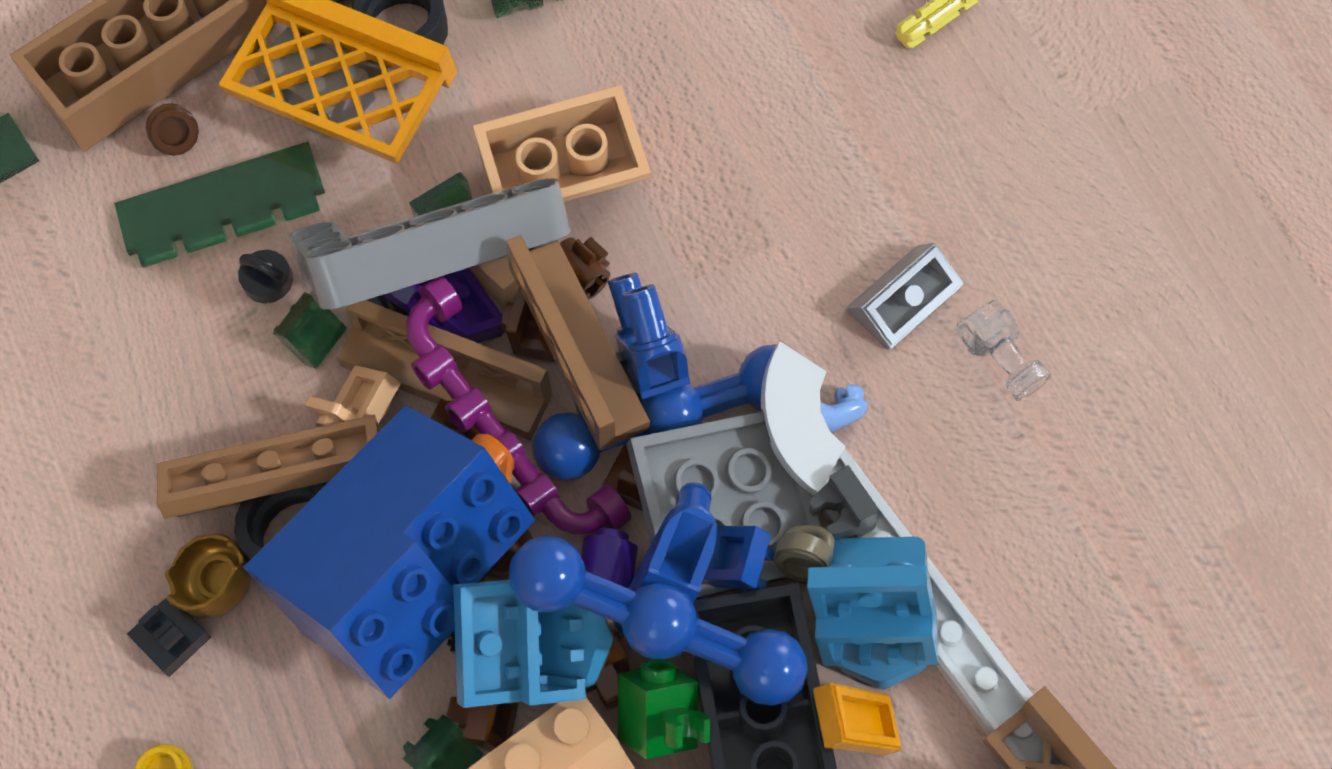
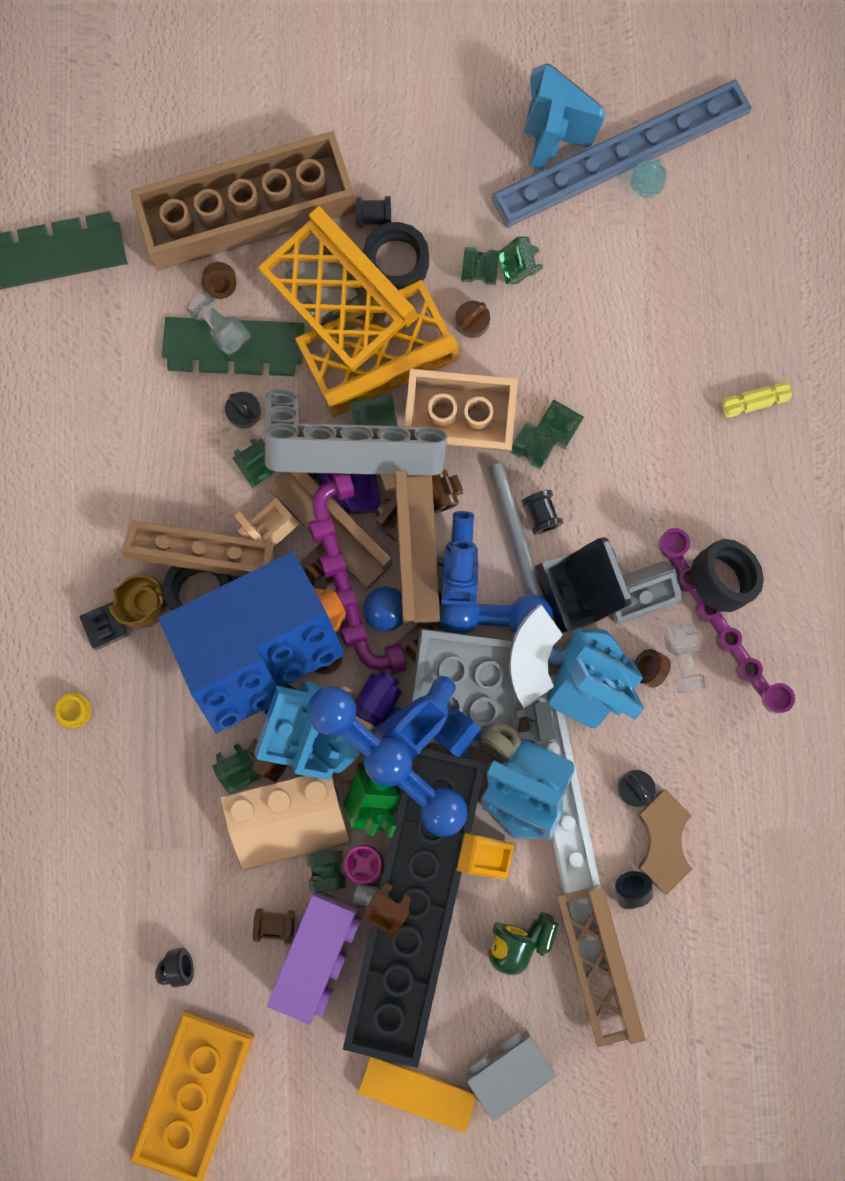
camera: 20 degrees right, 15 degrees up
(203, 186) = (225, 332): none -> clear leg
(452, 149) = (390, 374): none -> light orange fence
(531, 54) = (472, 319): none -> reddish brown tile
(677, 168) = (533, 445): none -> clear green wheel
(698, 280) = (516, 530): none -> light grey bar
(699, 135) = (560, 423): none -> clear green tile
(726, 244) = (542, 512): none -> black bush
(829, 304) = (584, 585): none -> black bracket
(897, 424) = (595, 680): none -> dark azure piece
(965, 381) = (653, 667): none -> reddish brown tile
(999, 242) = (743, 563): none -> black tyre
(1022, 548) = (636, 788): none -> black tile
(1088, 686) = (633, 890): none -> black tile
(1107, 626) = (664, 857): none -> medium nougat tile
(1149, 342) = (776, 697): none -> magenta bar

